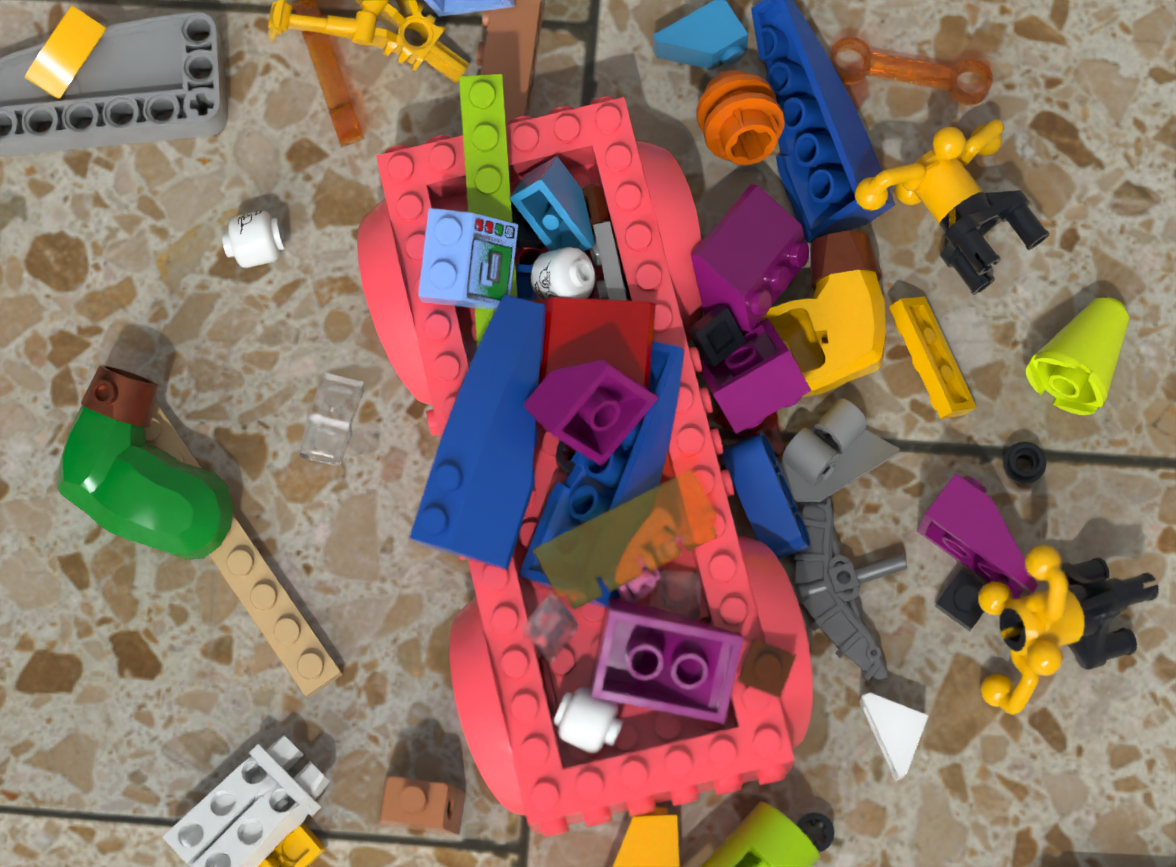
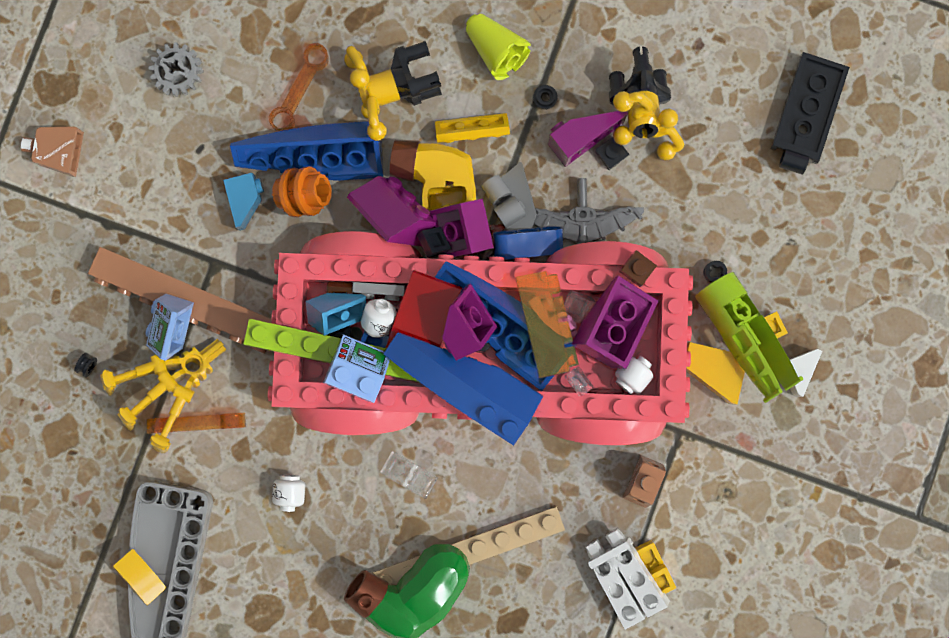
camera: 80 degrees left, 10 degrees up
(895, 730) = (675, 211): white slope -> none

